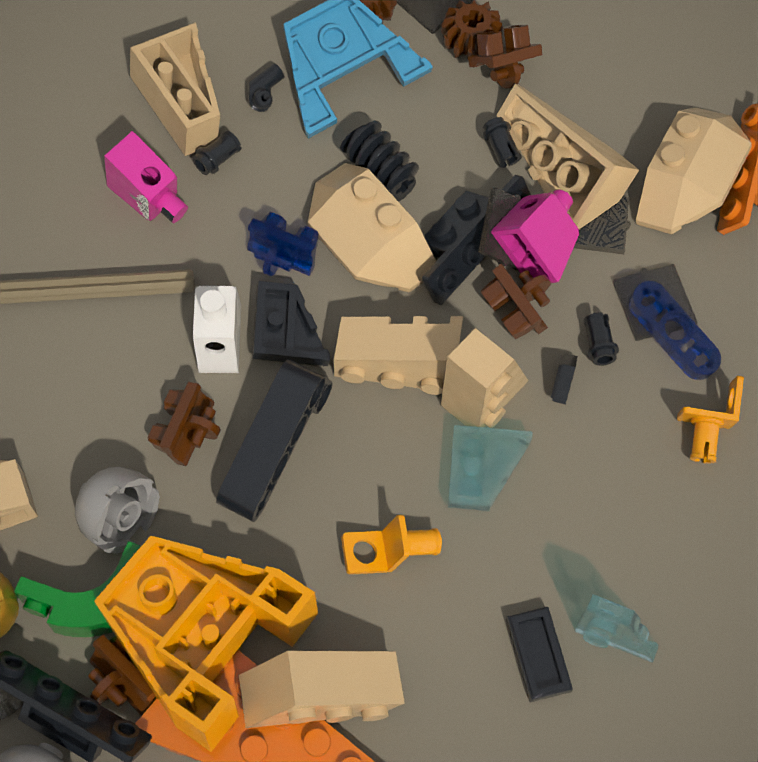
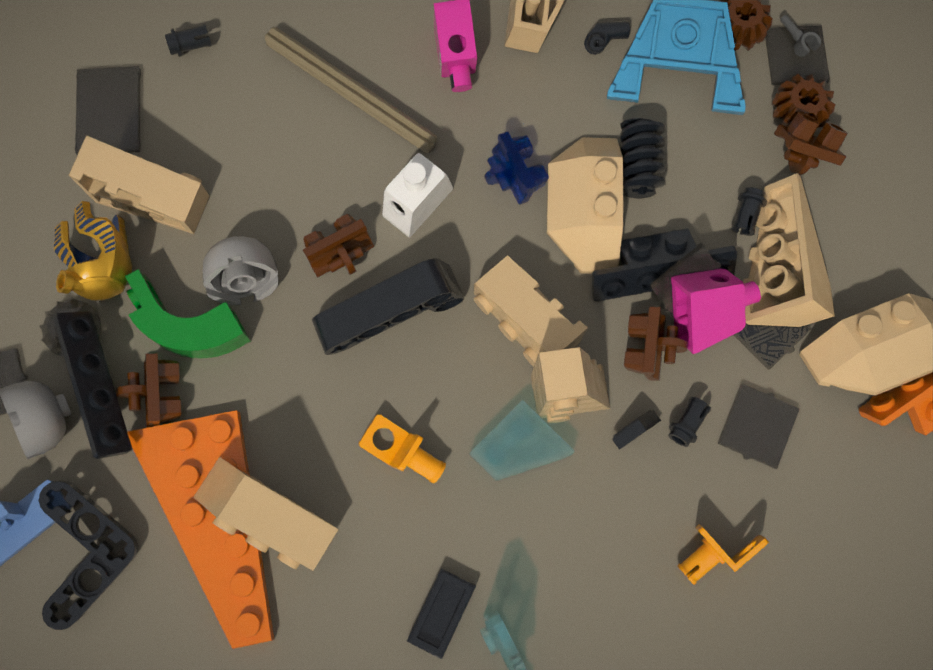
camera: 40 degrees right, 10 degrees up
(188, 616) = (214, 388): light orange wedge -> none
(216, 153) = (528, 60): black pin -> none
(285, 327) = (466, 230): black wing -> none
(673, 347) = (765, 471): clear blue beam -> none

